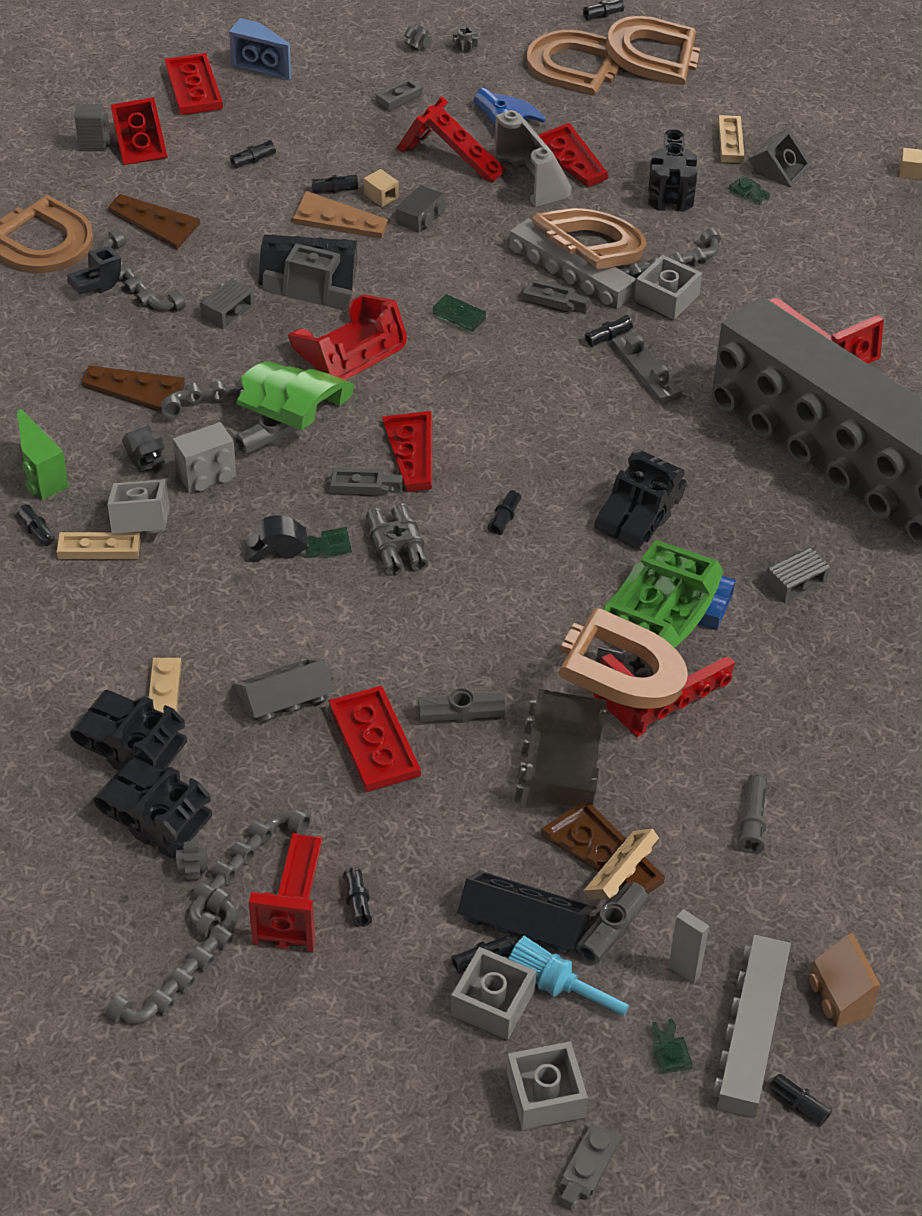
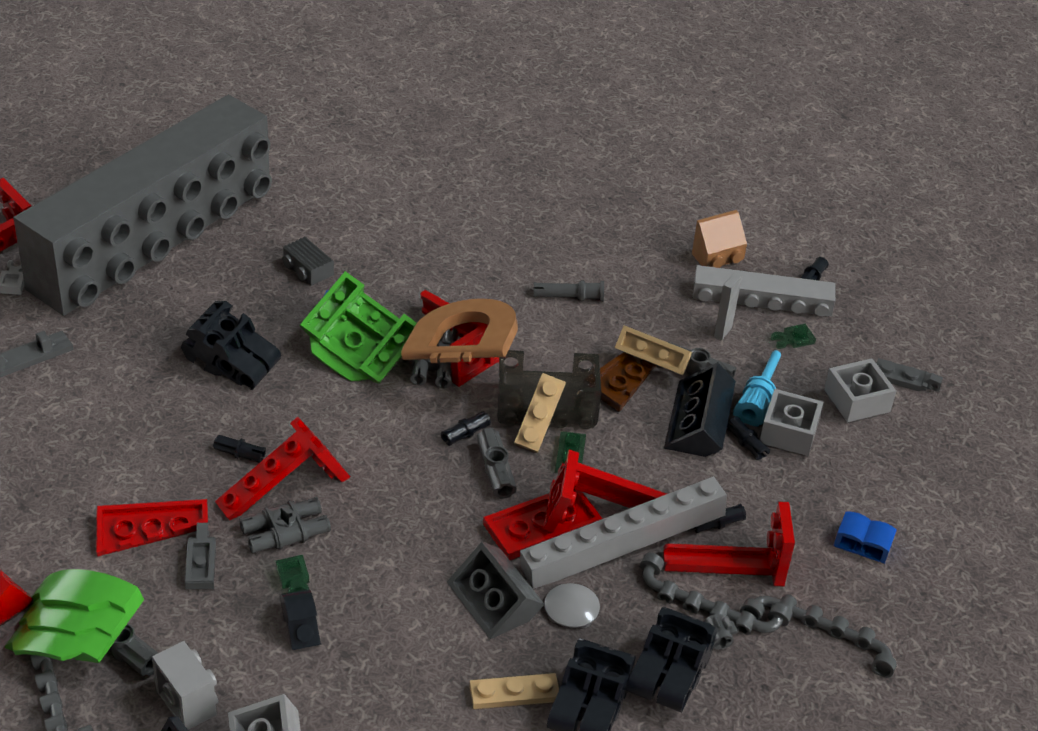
camera: 100 degrees left, 5 degrees down
(259, 750) = (572, 605): none -> light grey dish
(304, 1036) = (865, 536): none -> blue brick
(334, 796) = (623, 533): none -> light grey brick
(395, 736) = (593, 482): none -> red bracket
(472, 543) = (277, 467): none -> red bracket
(476, 779) = (570, 441): none -> clear green plate
(519, 687) = (466, 428): none -> black pin
(521, 741) = (540, 413): none -> tan plate

